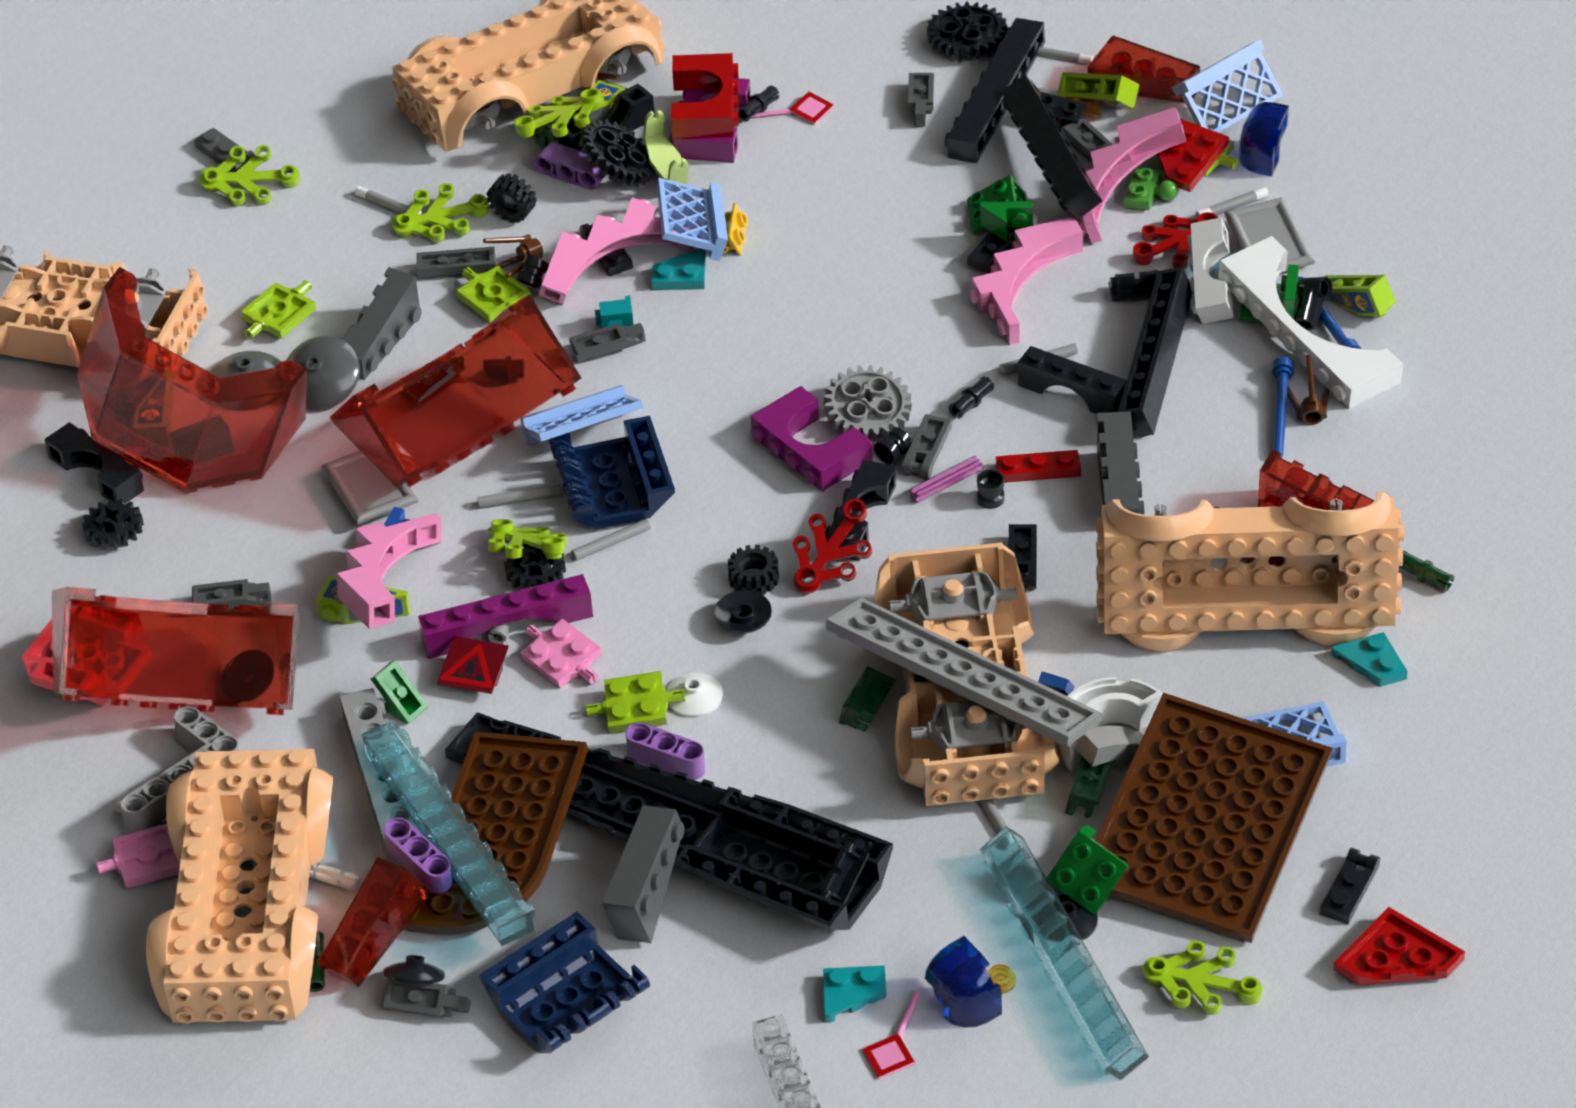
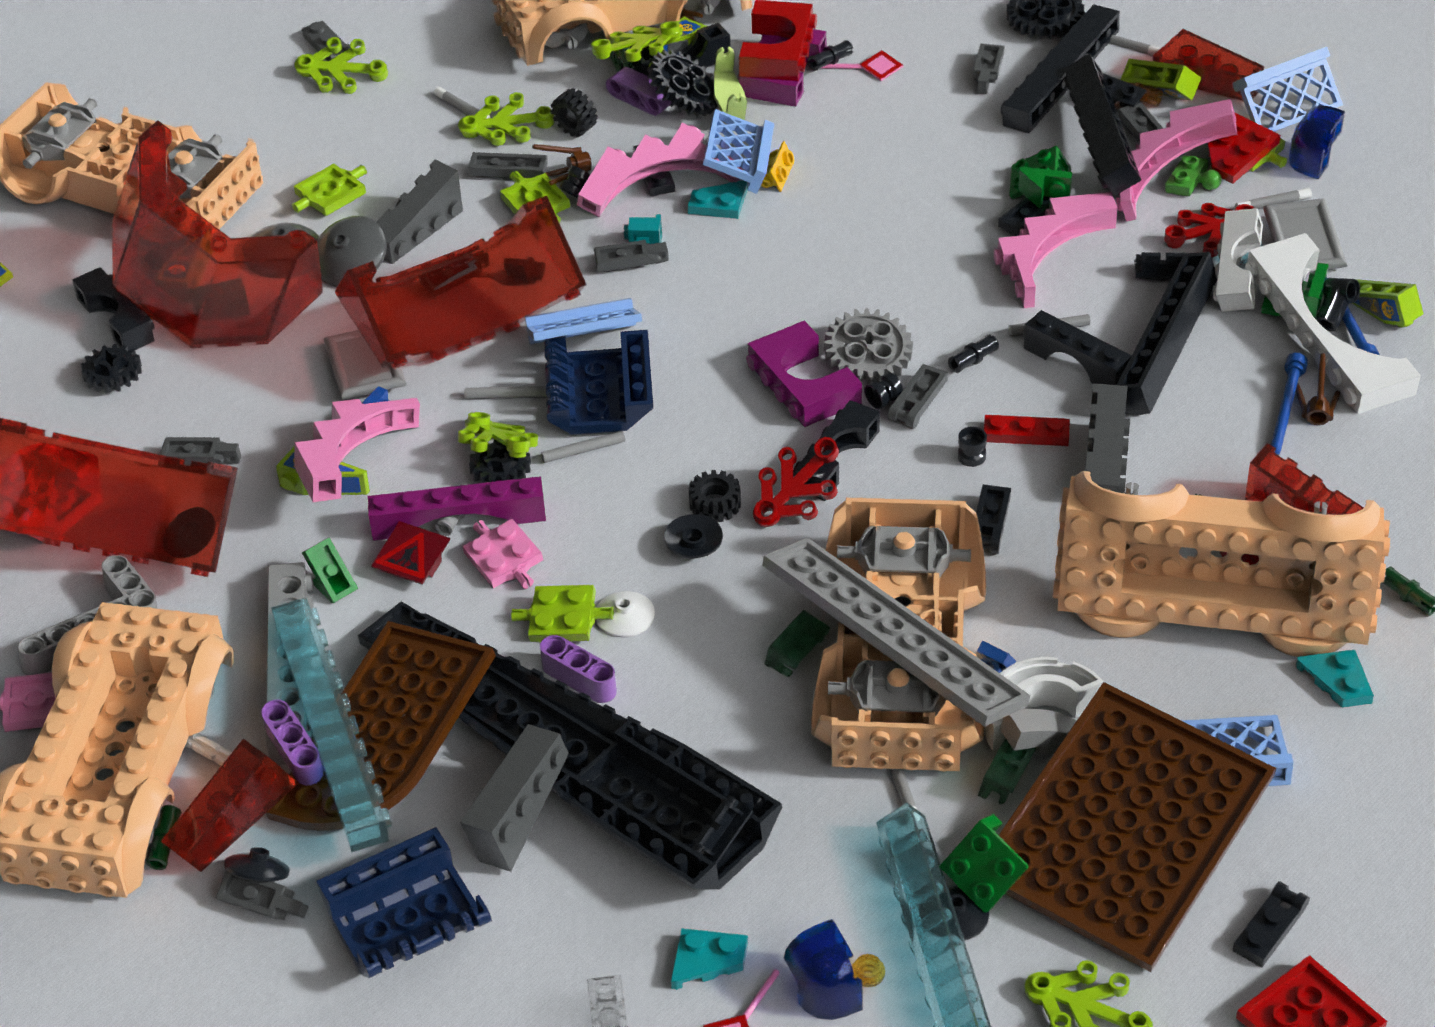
camera: 10 degrees right, 0 degrees up
(946, 479) = (930, 430): magenta axle -> none

